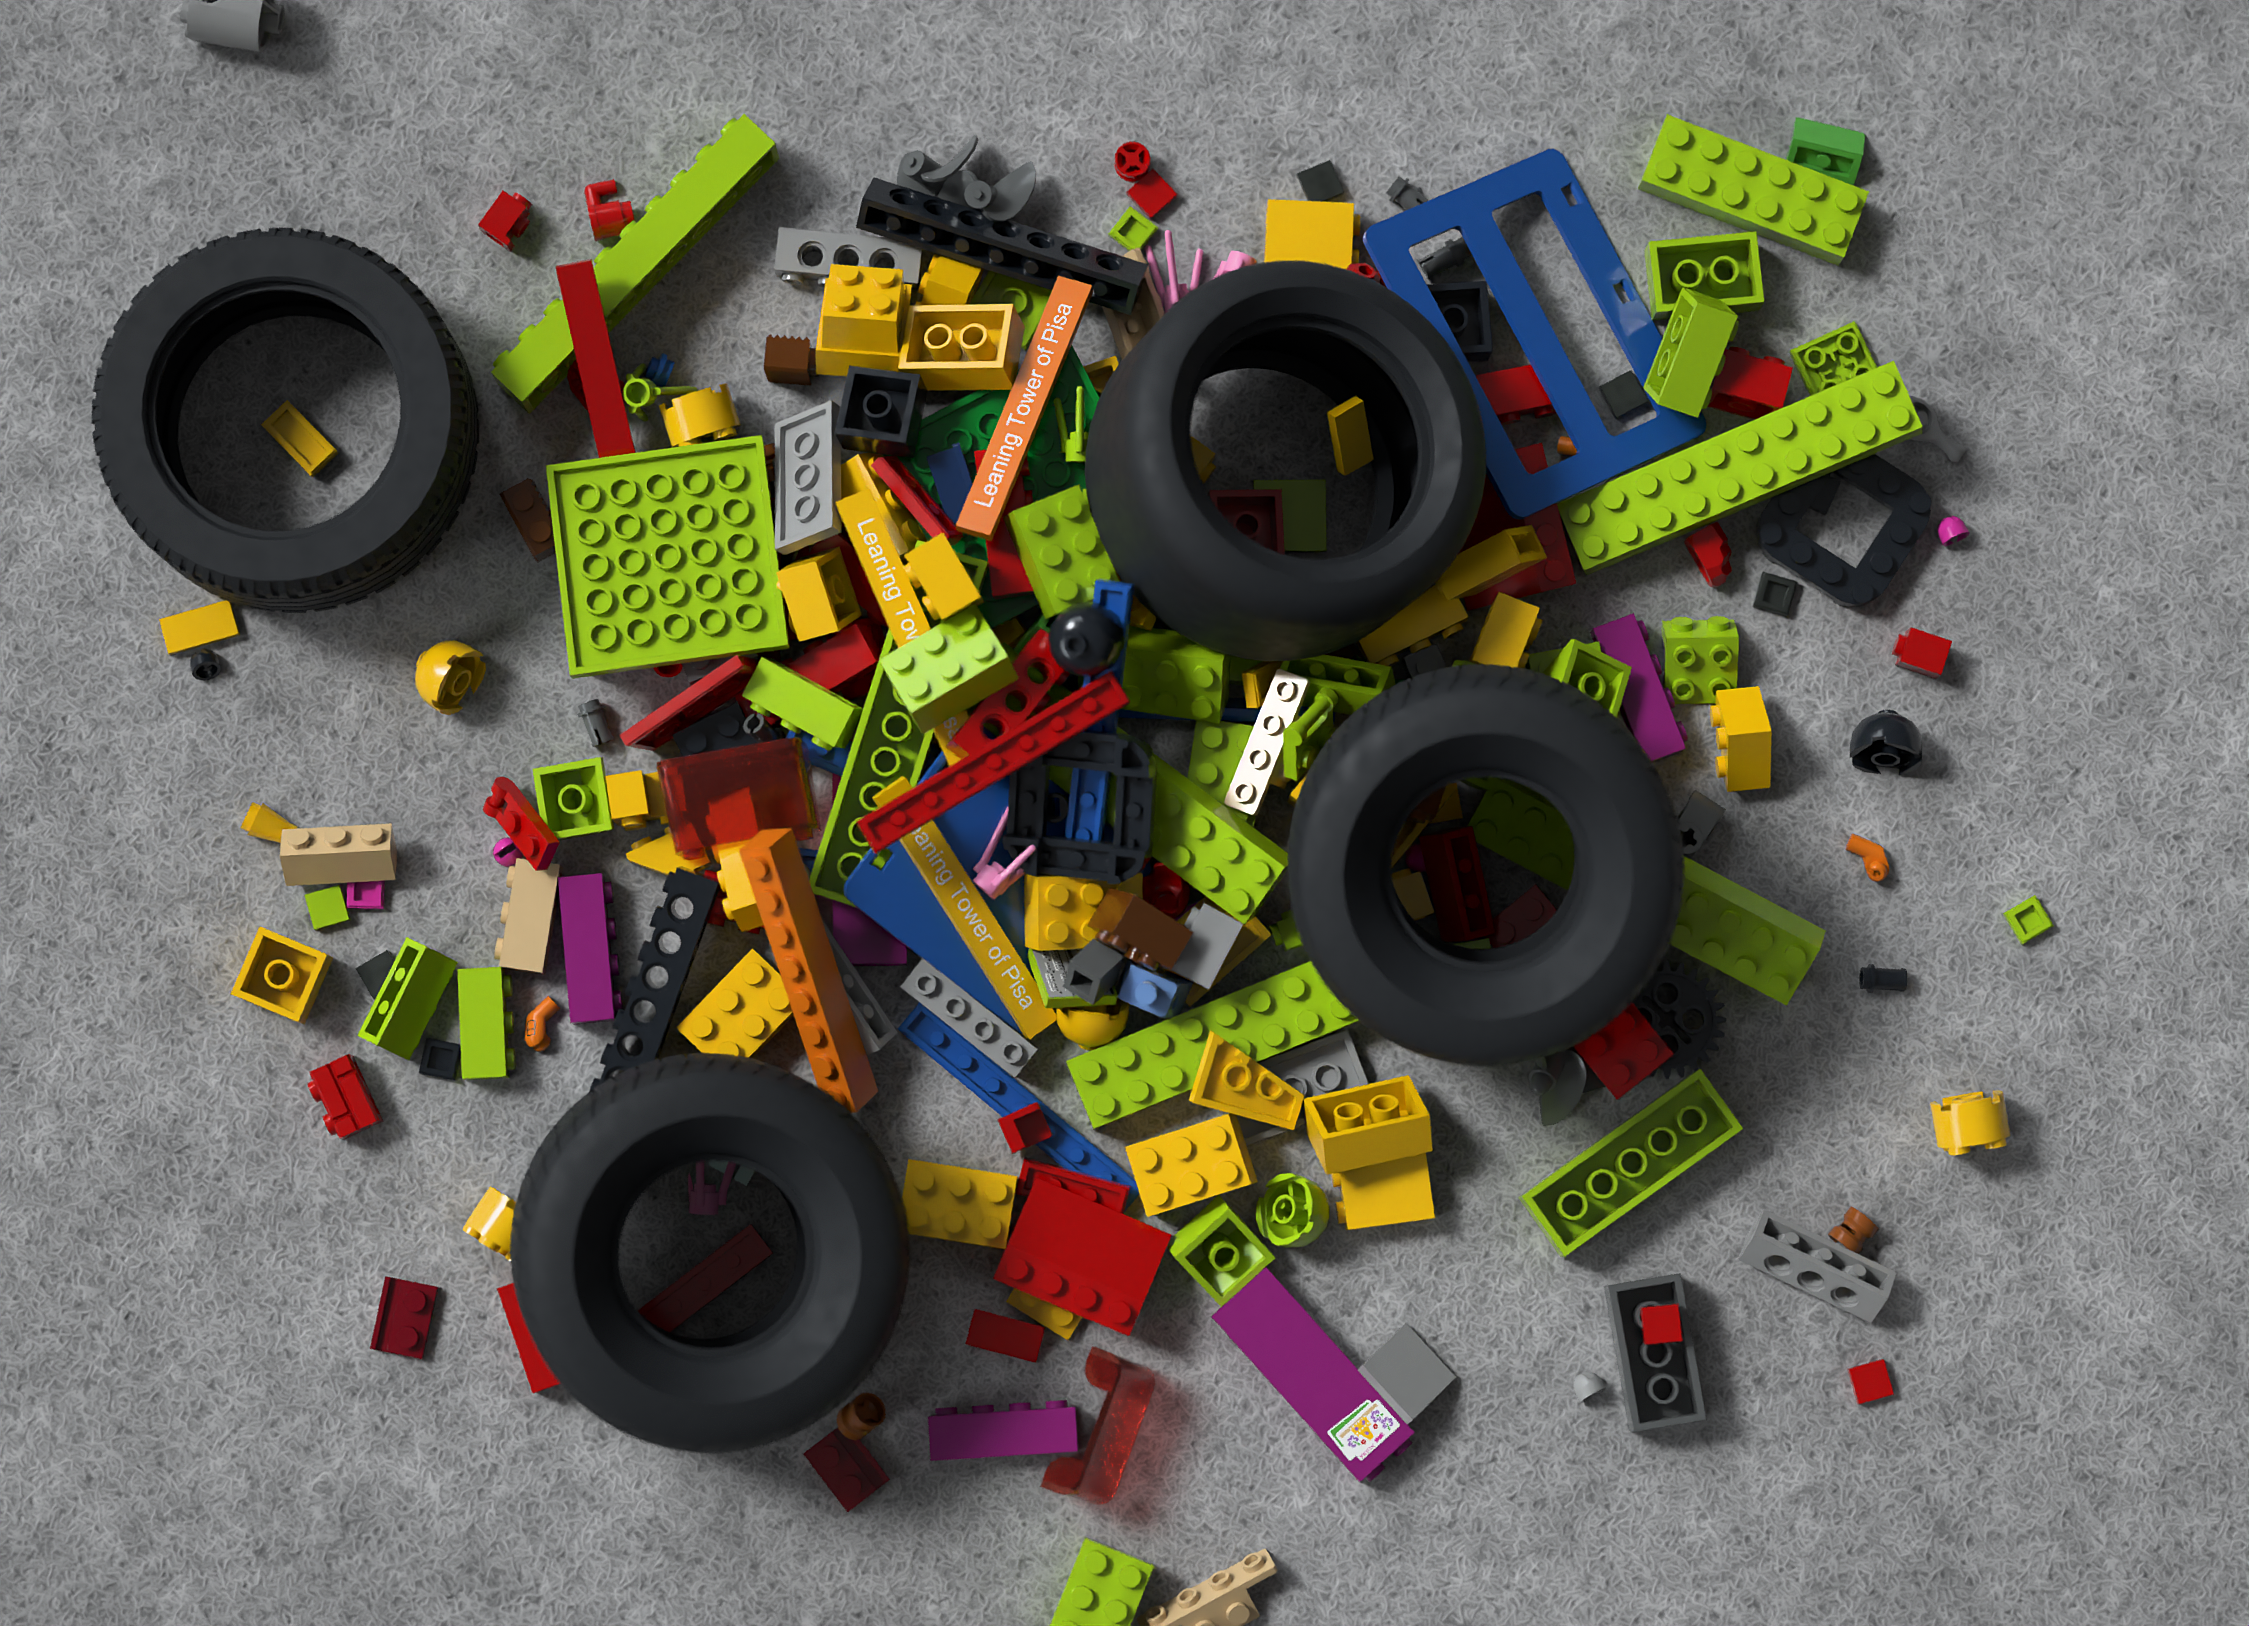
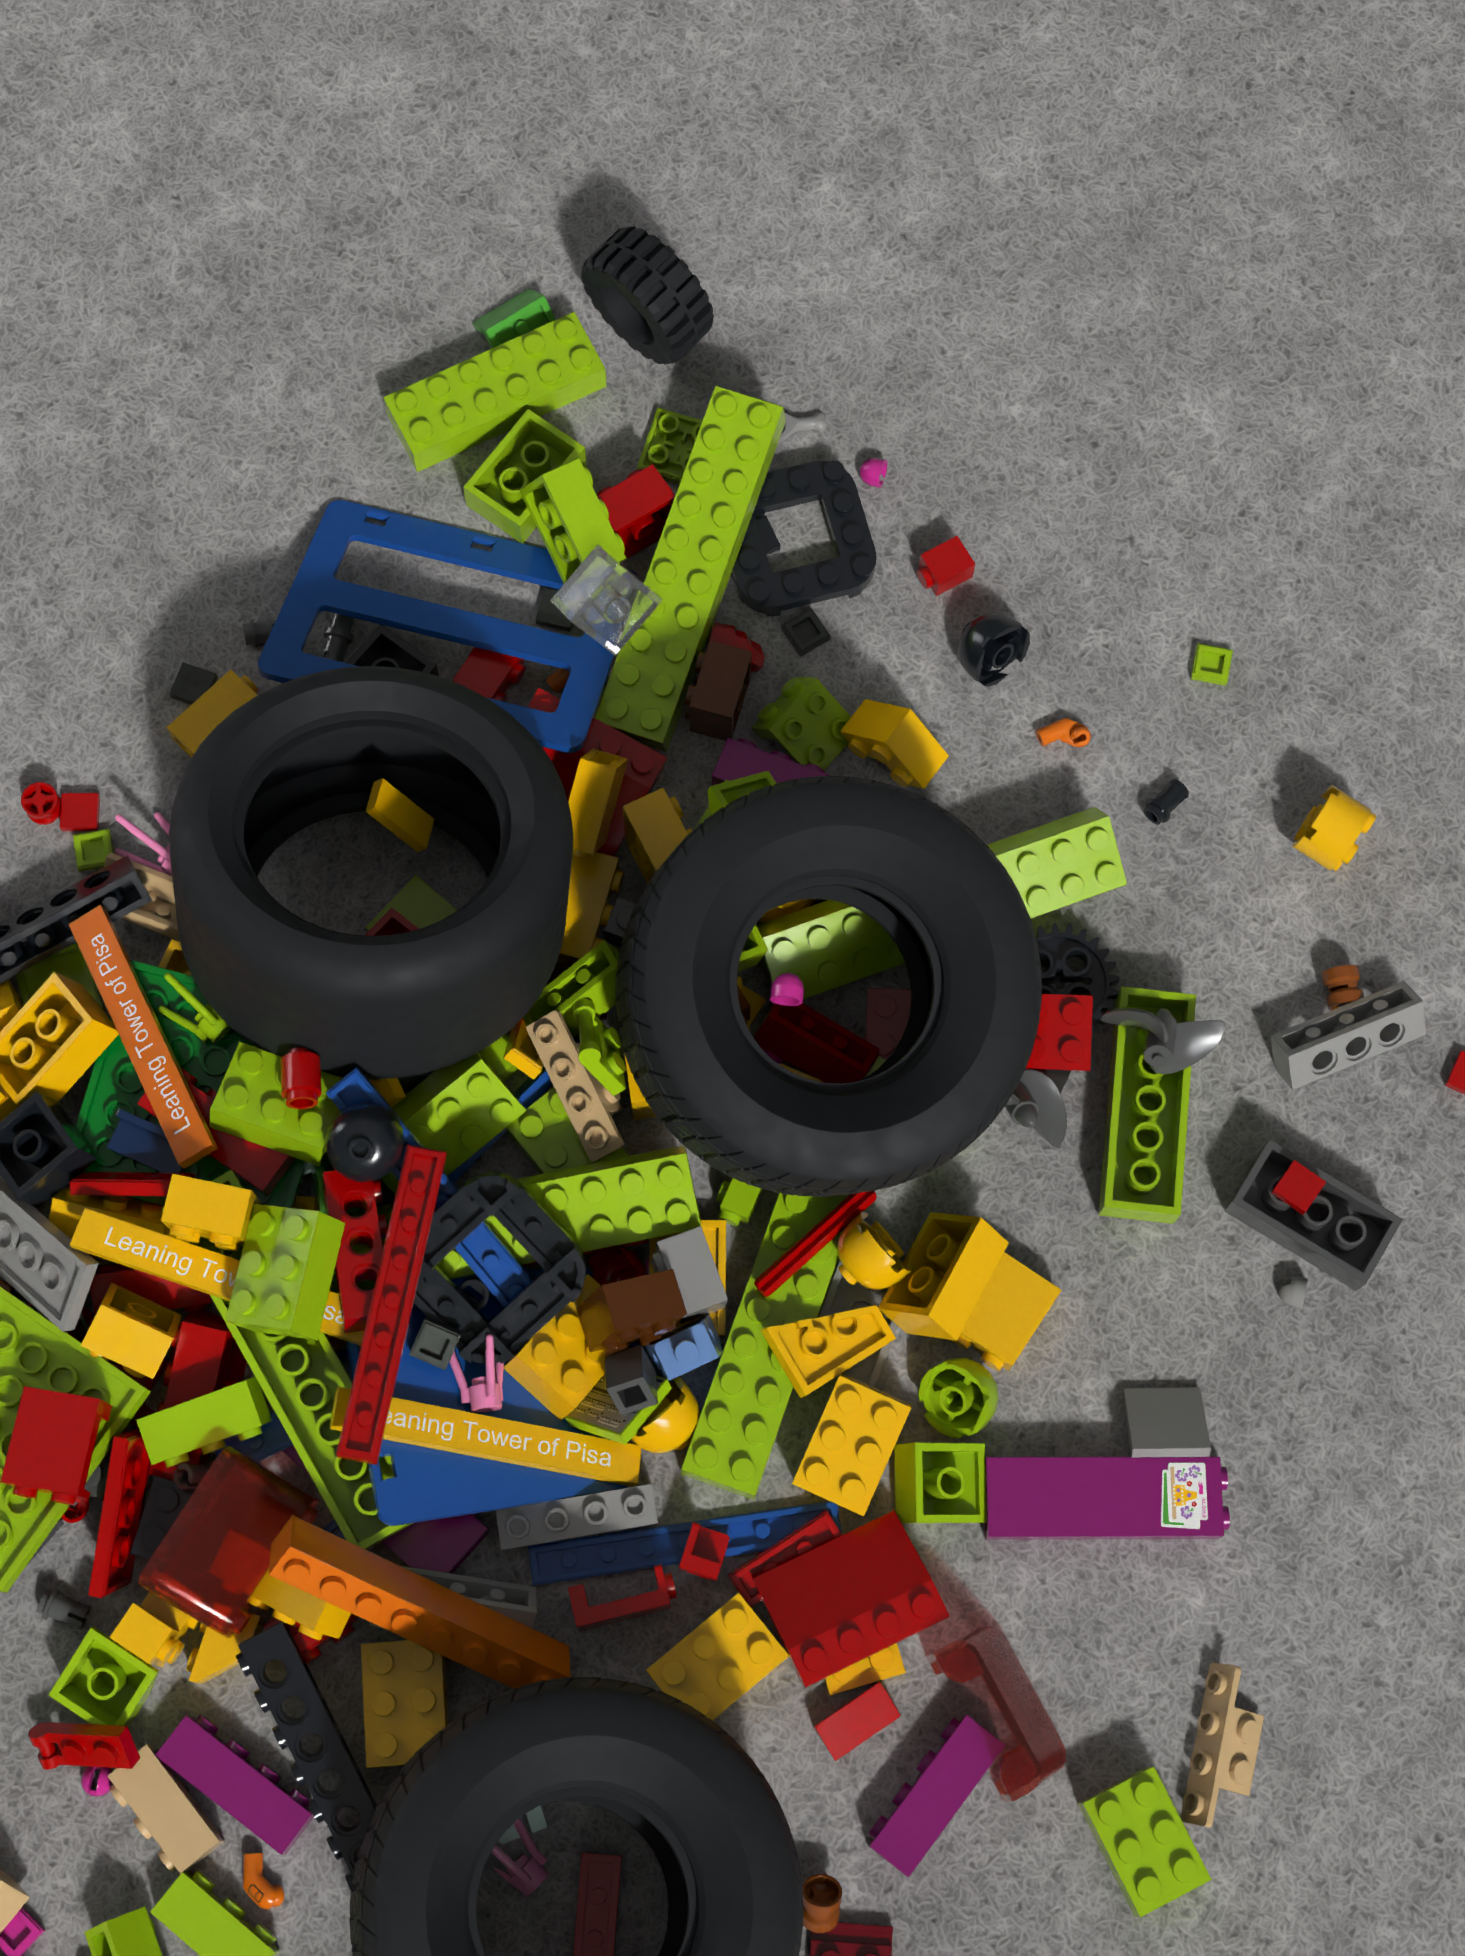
camera: 45 degrees left, 10 degrees down
(695, 619) = (53, 1444): none -> red panel
(908, 1087) = (623, 1609): none -> red panel
(996, 813) = (435, 1343): none -> pearl dark grey tile
(1089, 554) = (301, 1078): none -> red brick
(1296, 1010) = (813, 1242): none -> red axle
(1336, 1060) = (870, 1255): none -> yellow cylinder
(1439, 844) = (787, 990): none -> dark pink hinge
(1649, 434) = (606, 600): none -> clear brick
(1663, 575) = (718, 690): none -> reddish brown brick
(1685, 1141) = (1169, 1044): none -> dark grey piece
(1928, 238) = (647, 295): none -> black tyre

